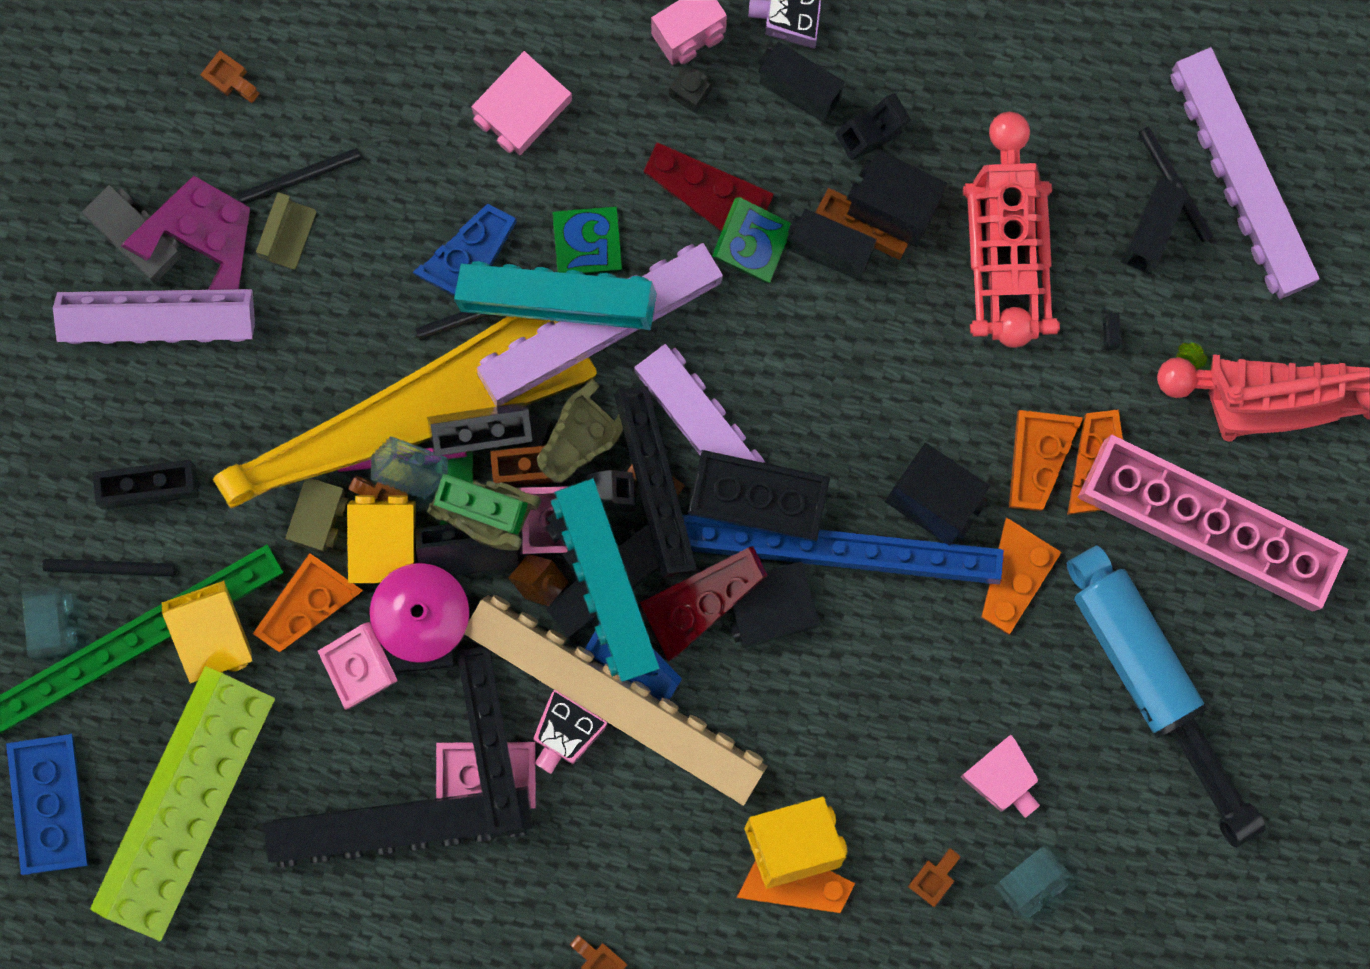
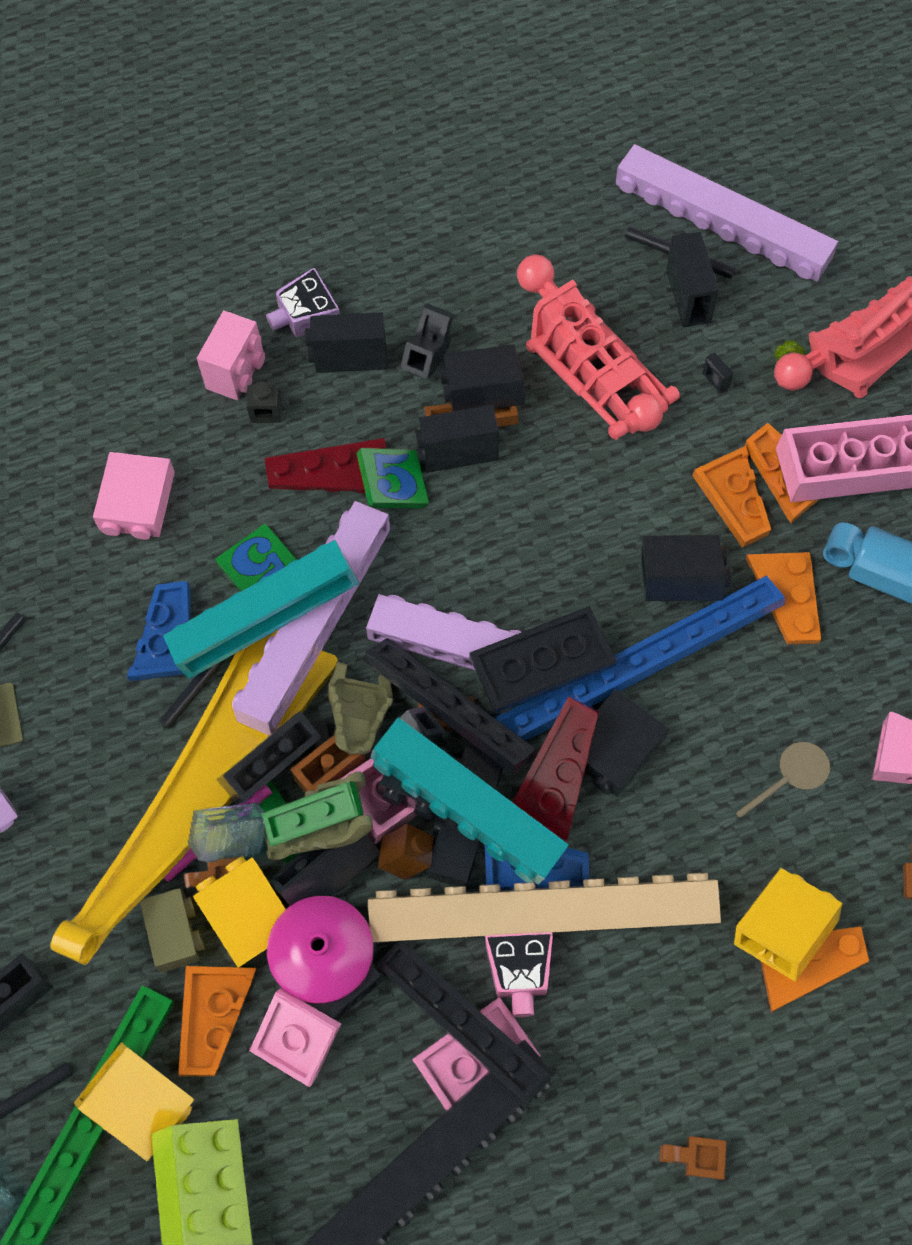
camera: 30 degrees left, 15 degrees down
(911, 727) = (802, 766): none -> dark tan piece

